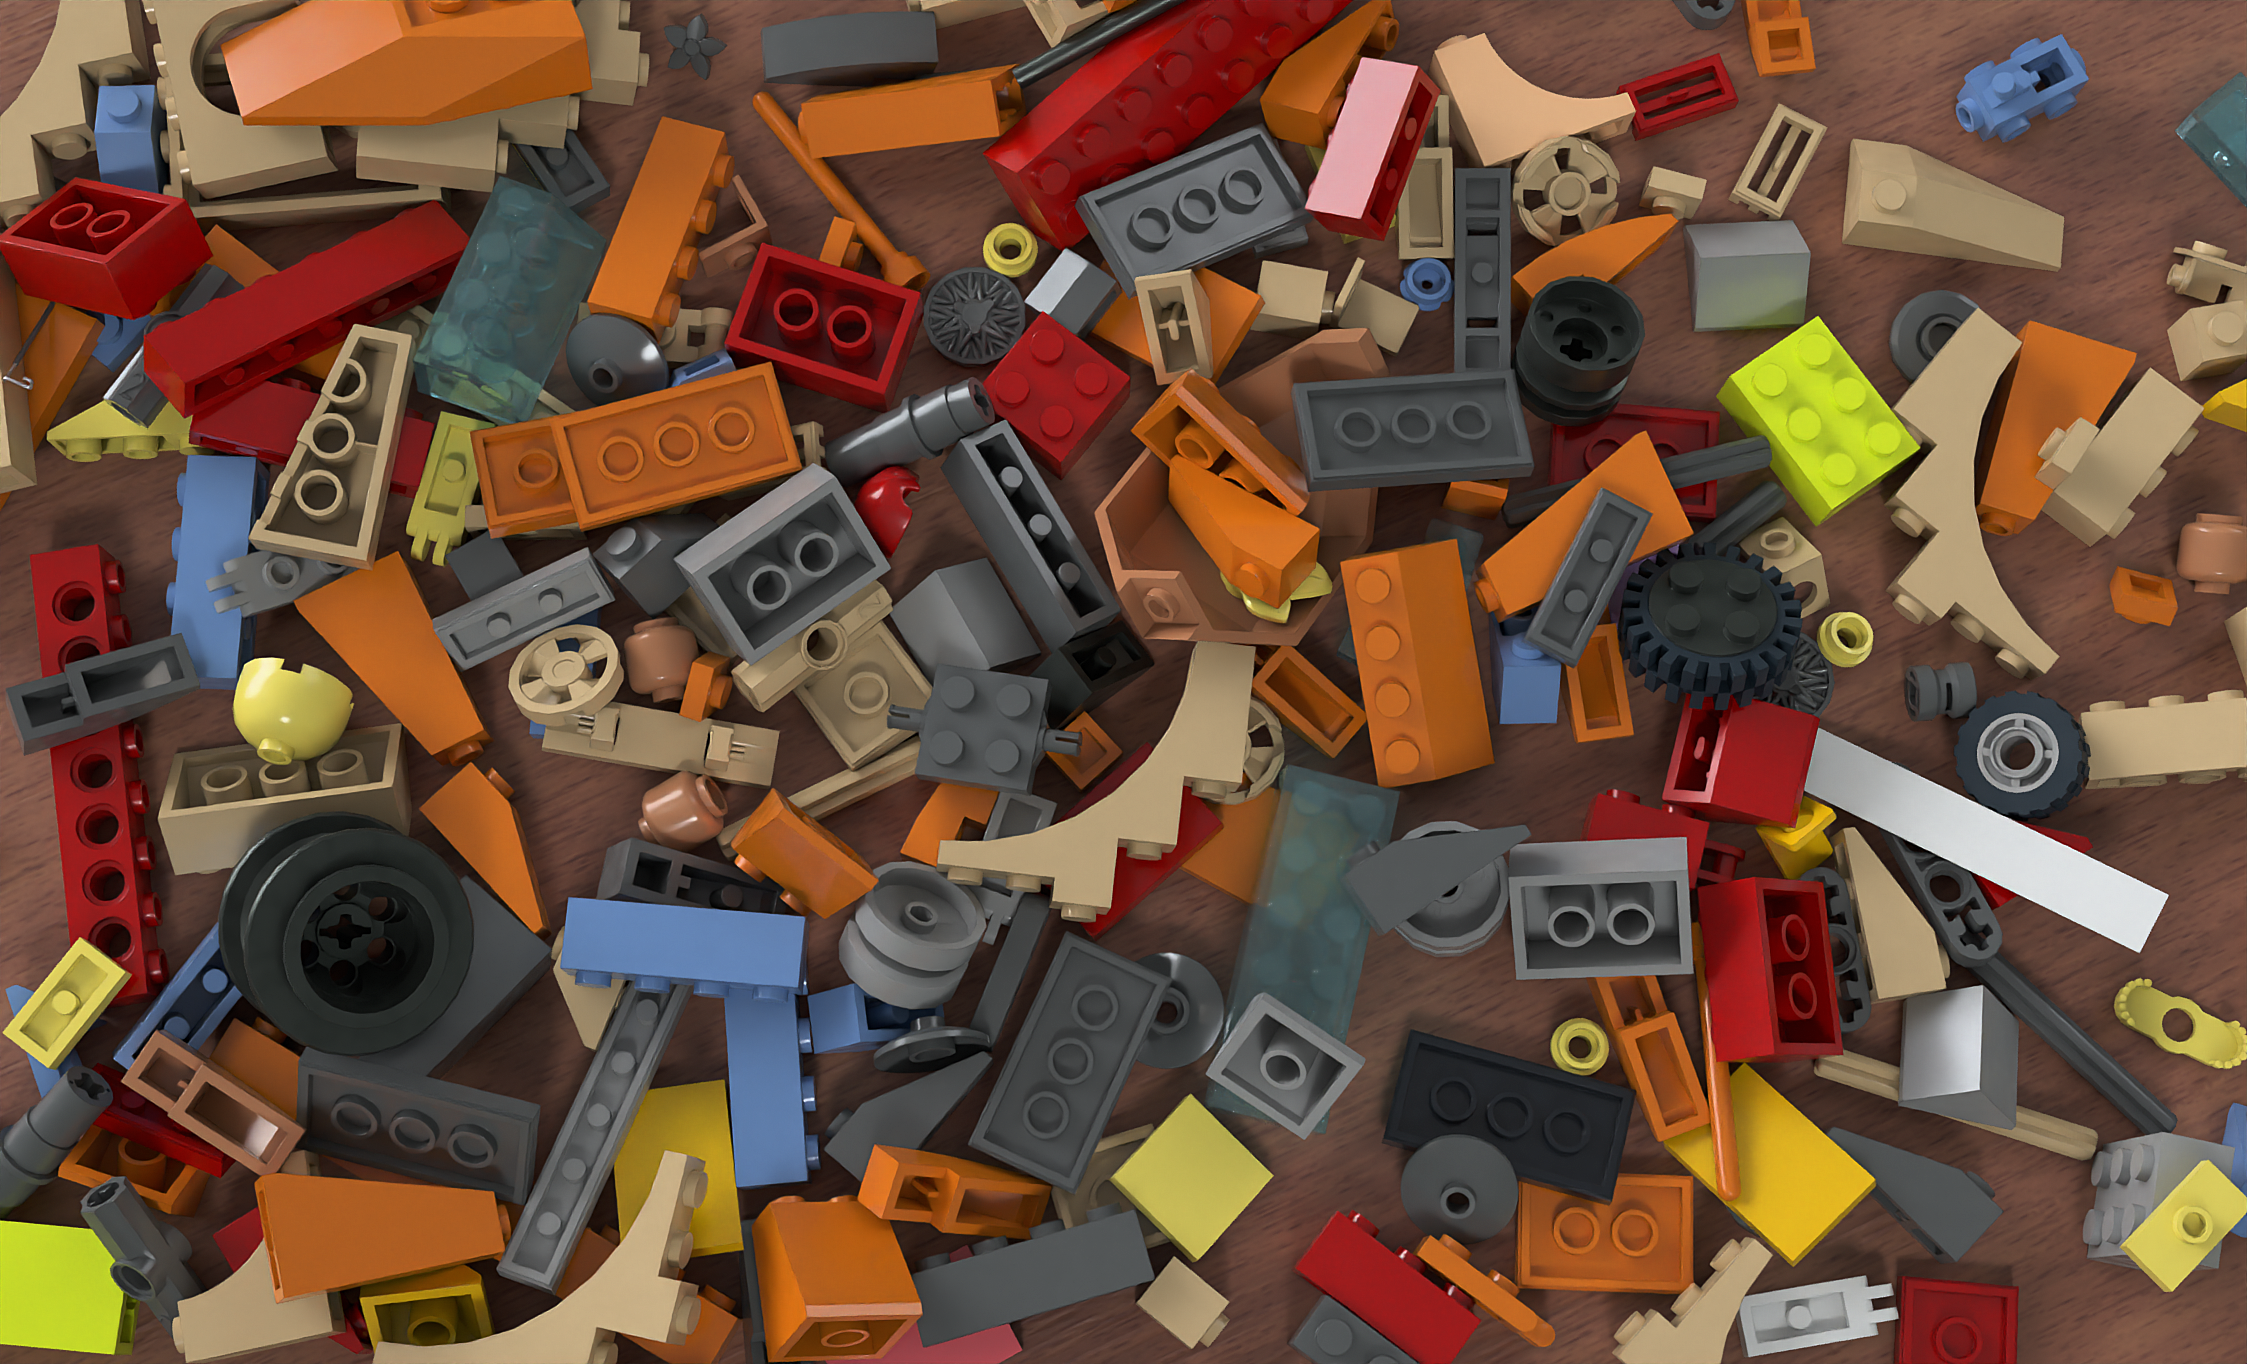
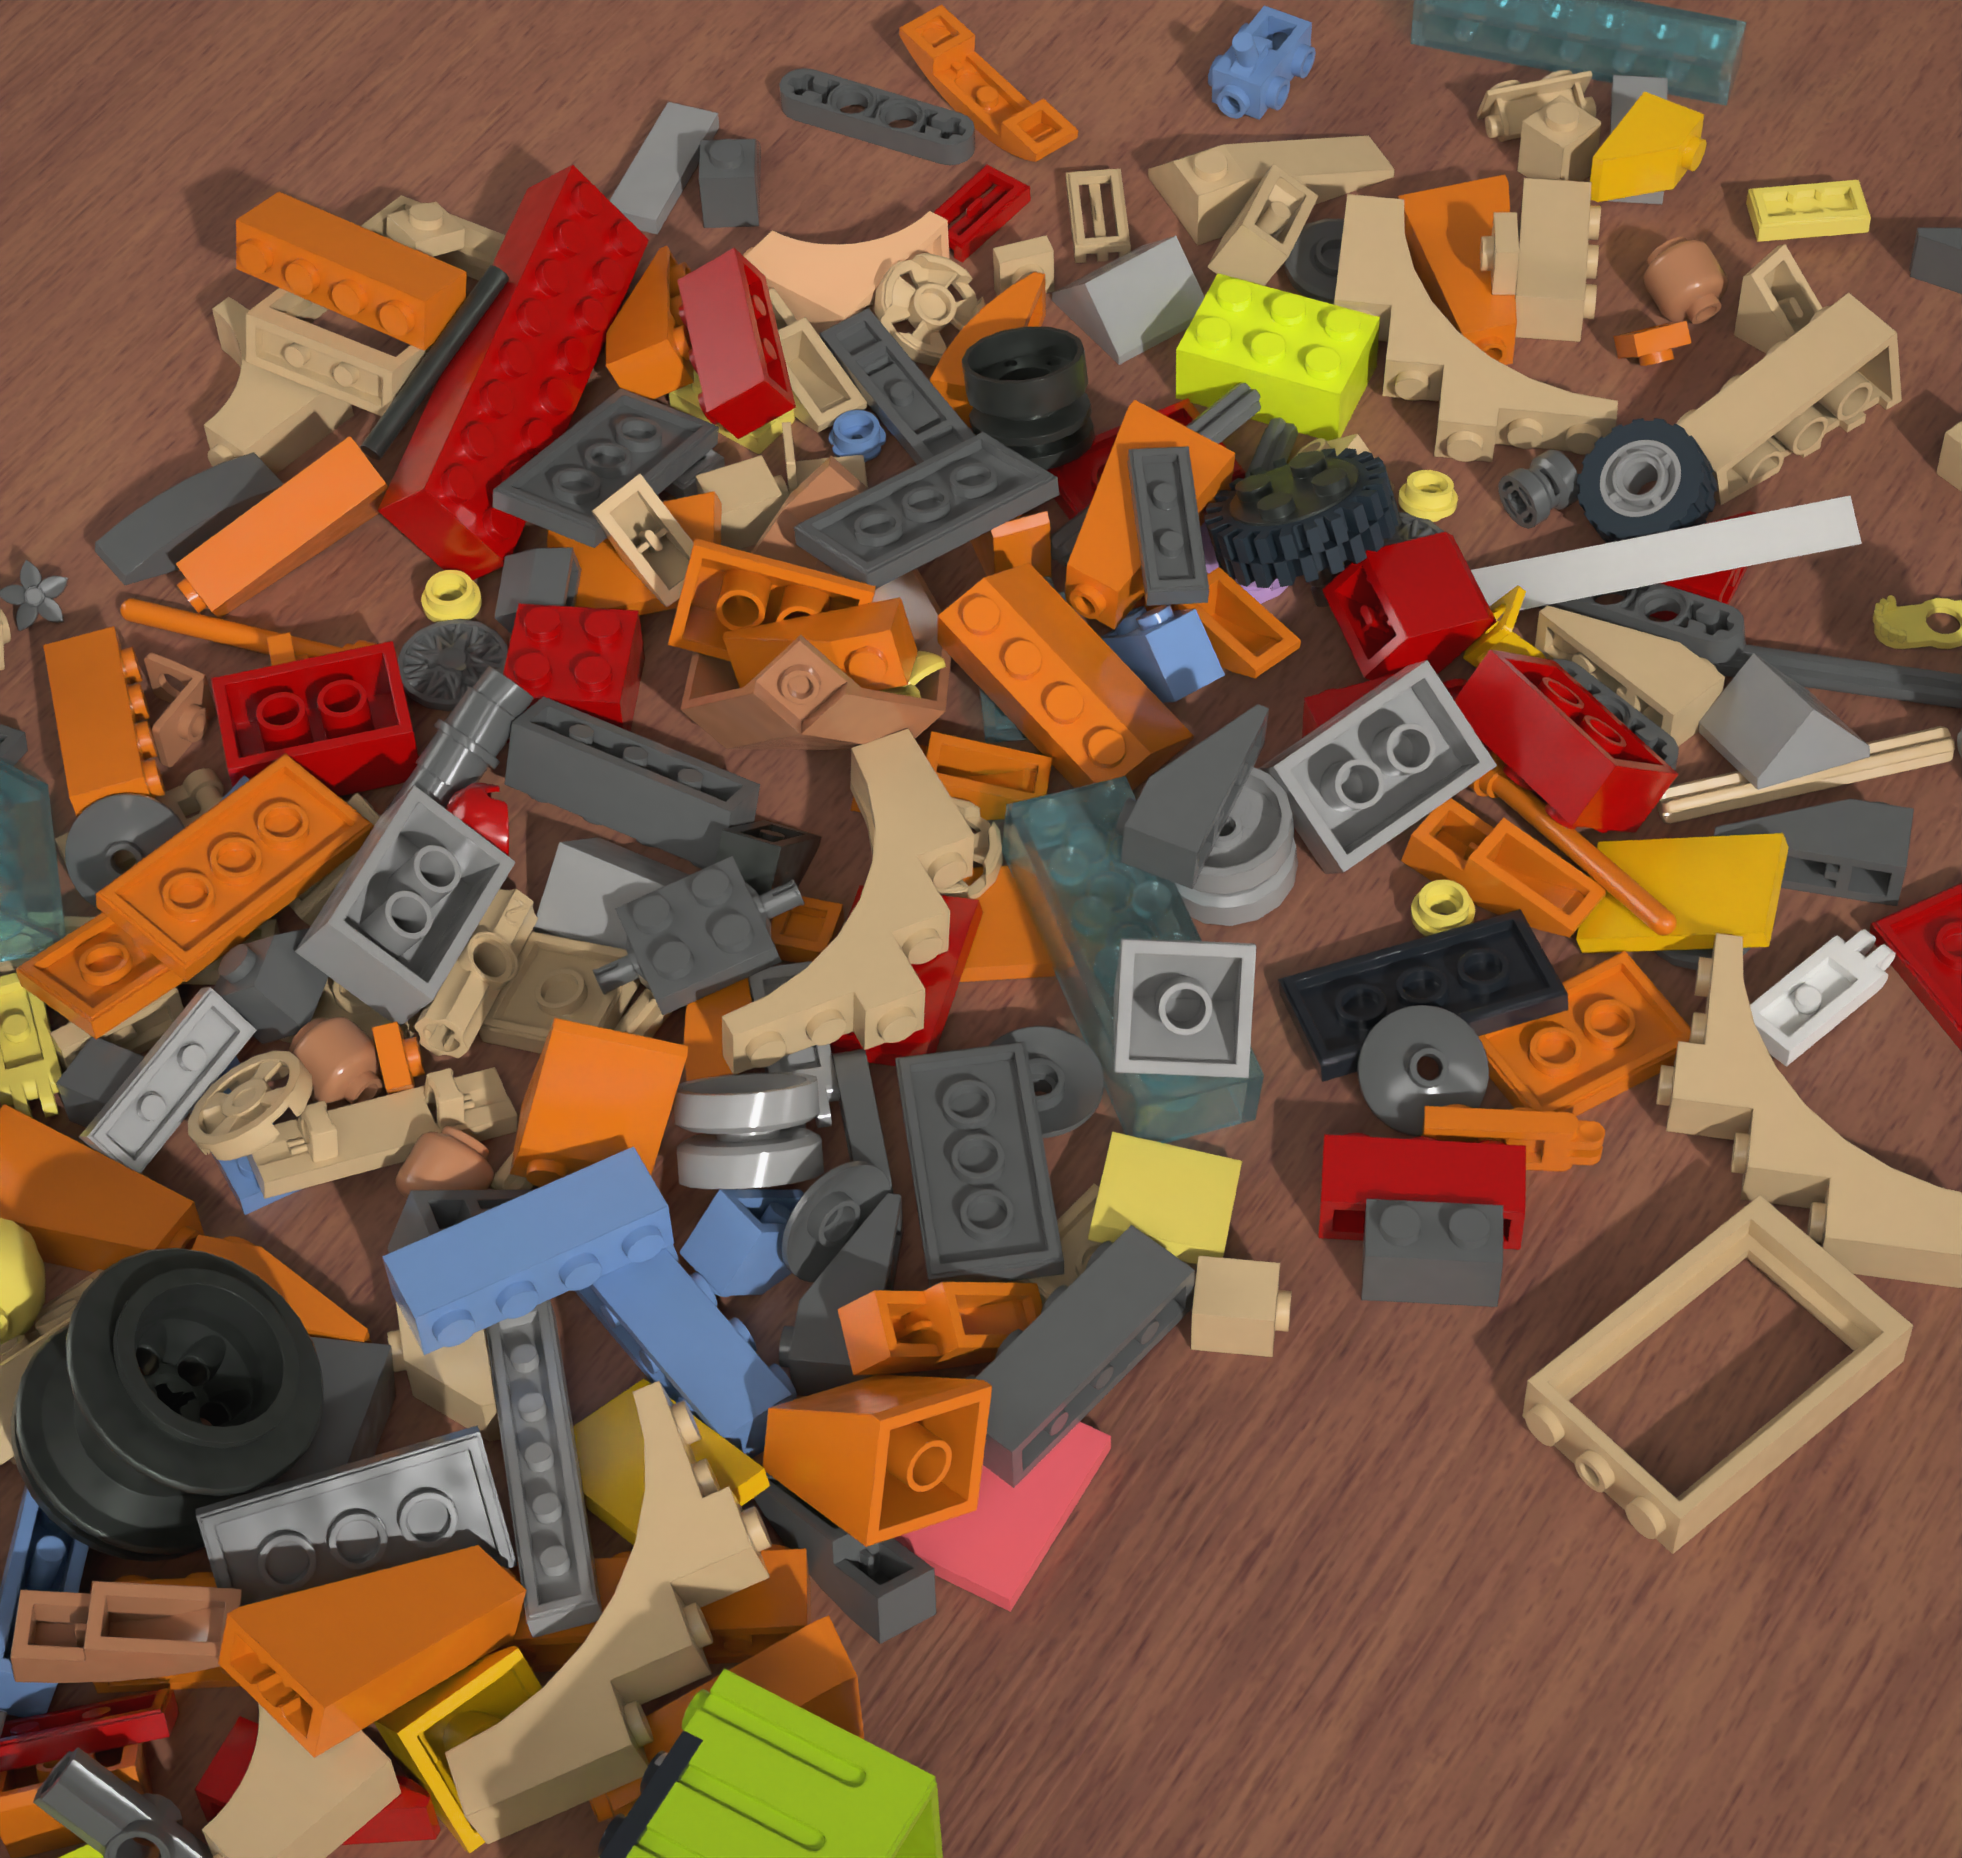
camera: 25 degrees left, 25 degrees down
(1894, 284) = (1264, 229): none -> tan slope

